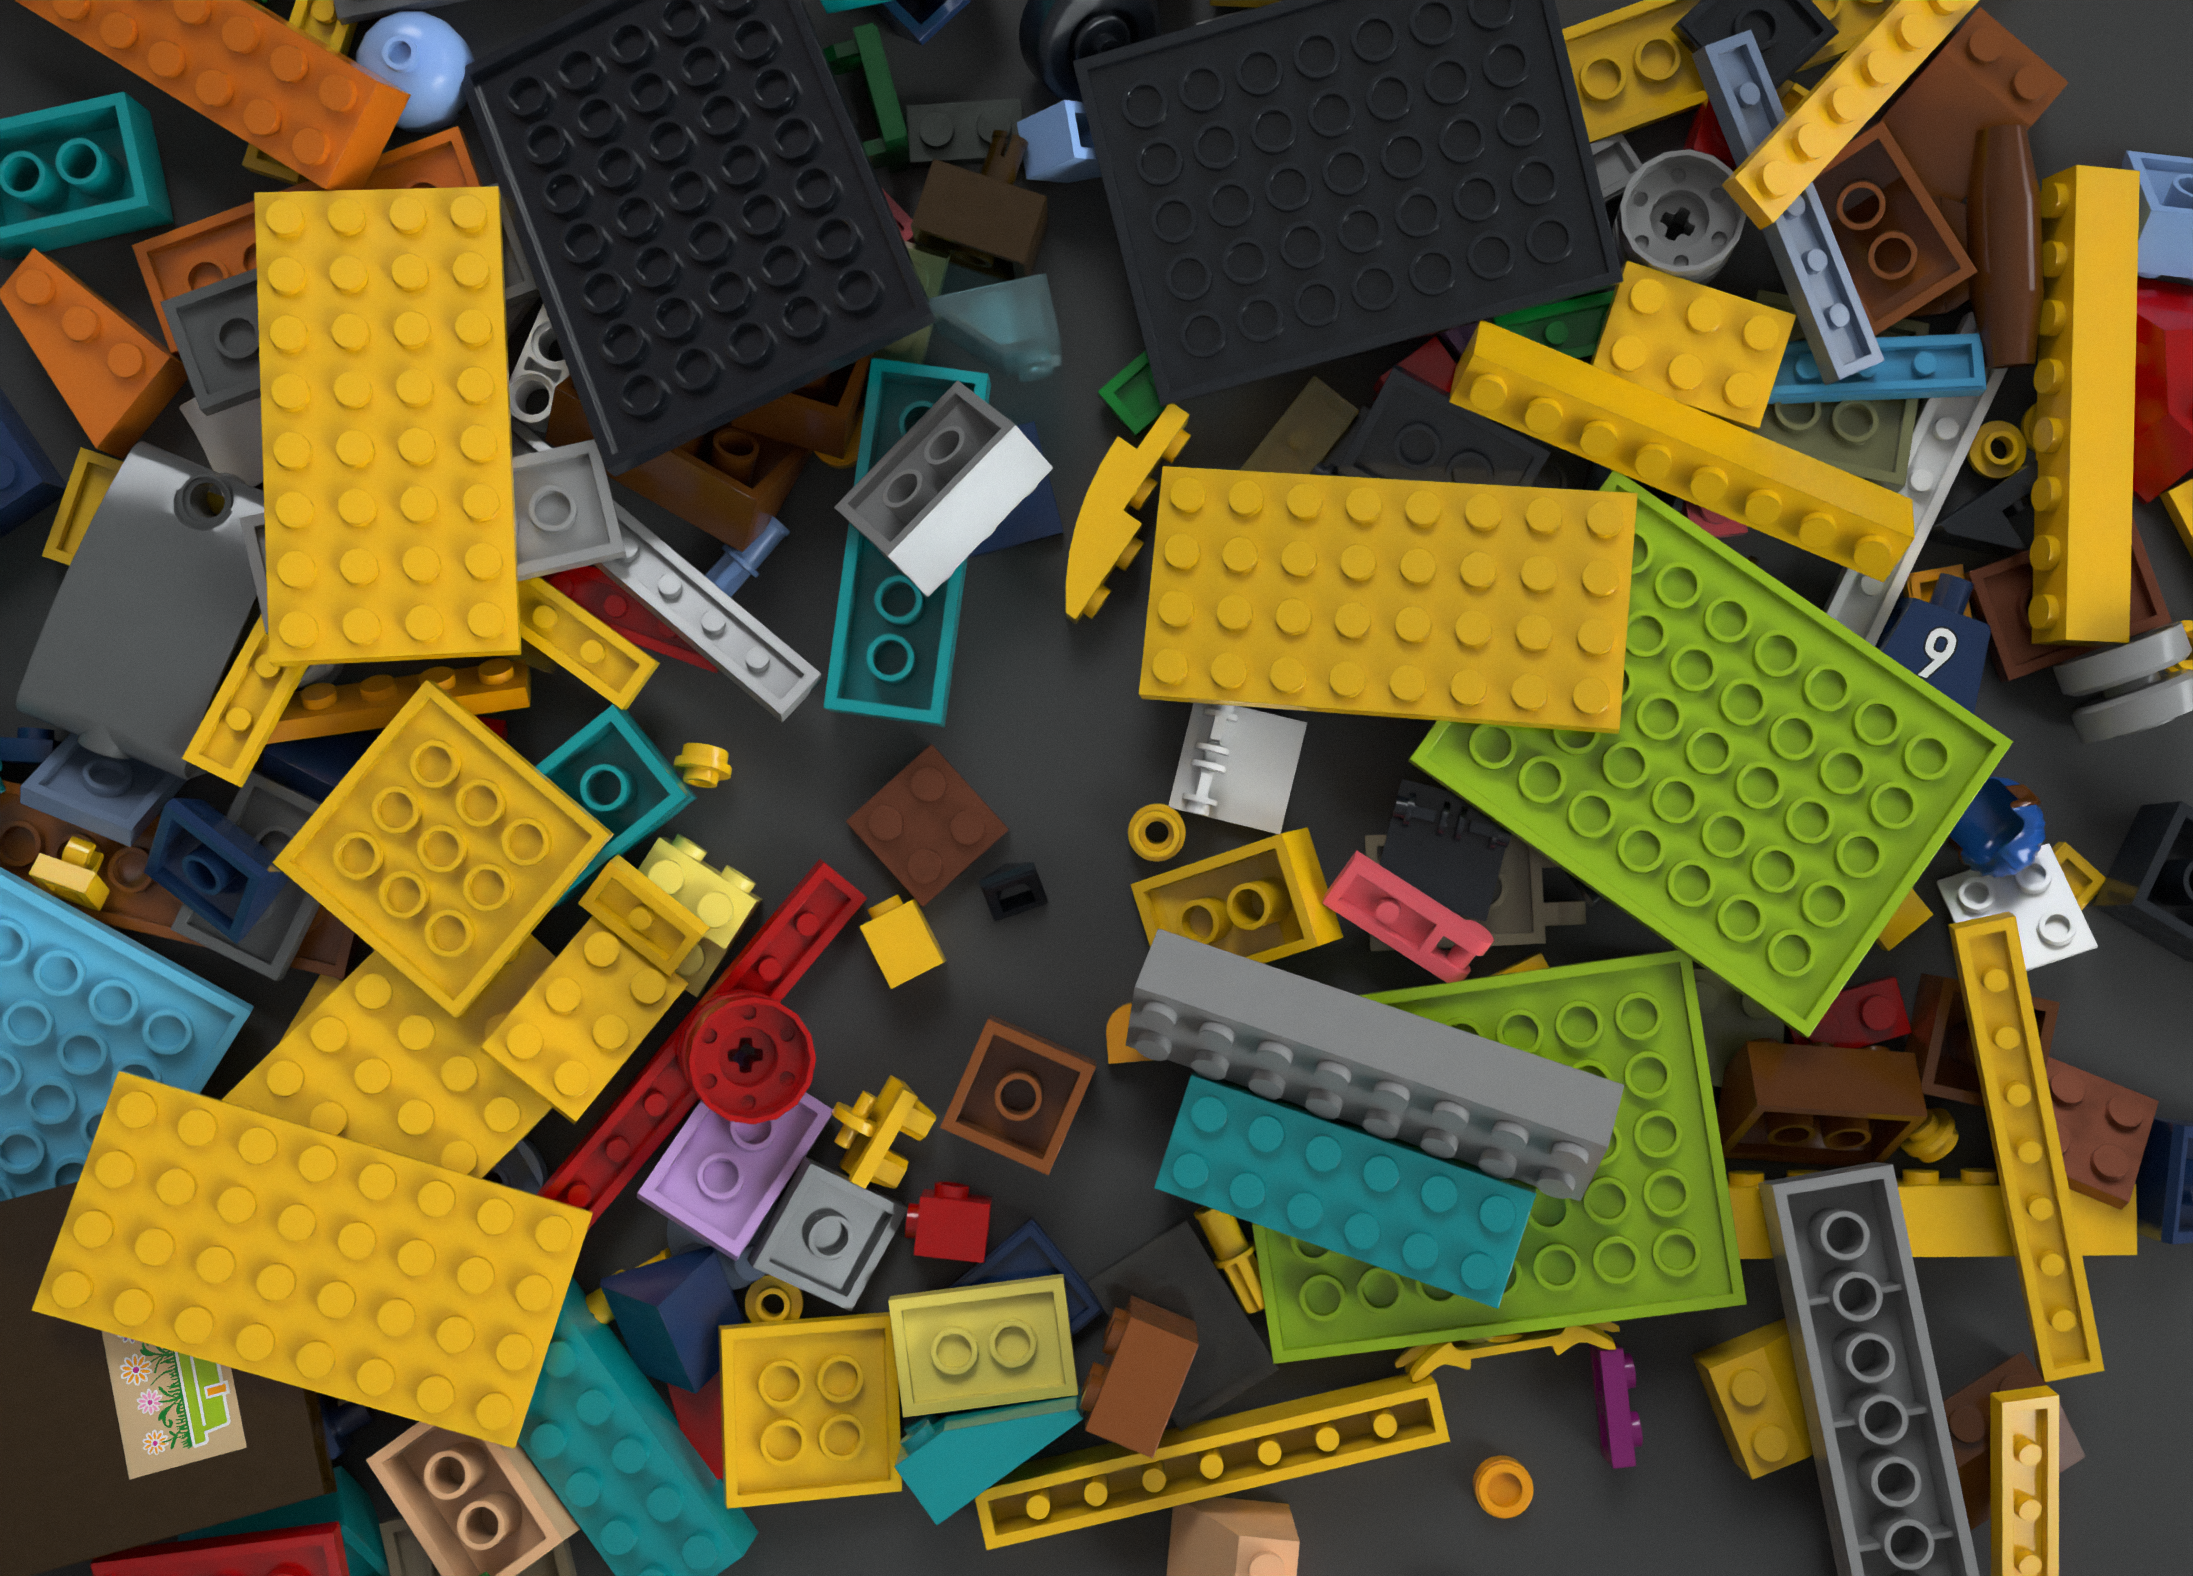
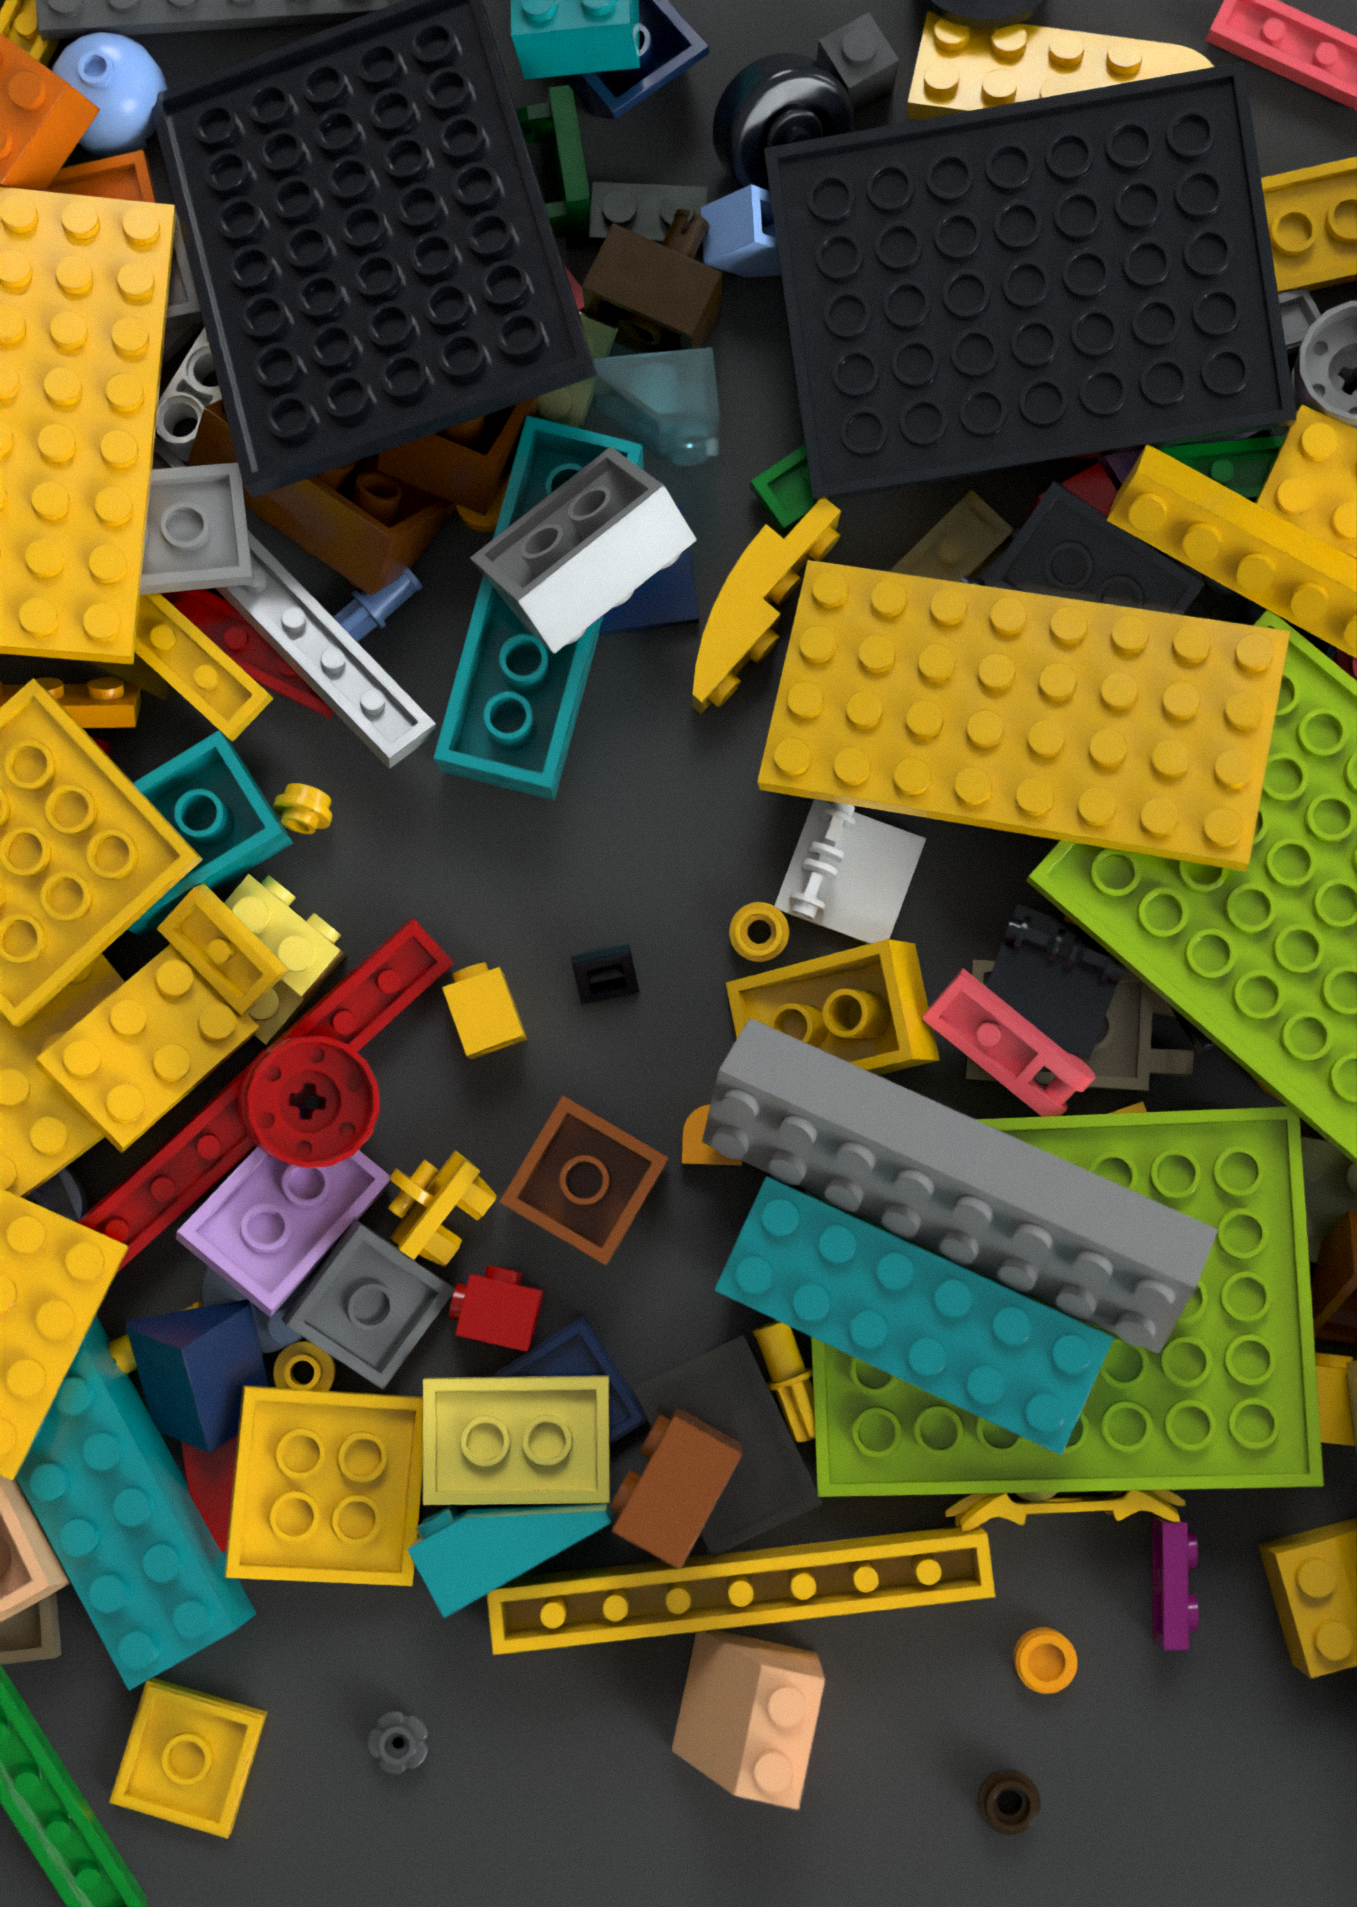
camera: 10 degrees right, 5 degrees down
(927, 825) = (525, 898): copper plate -> none

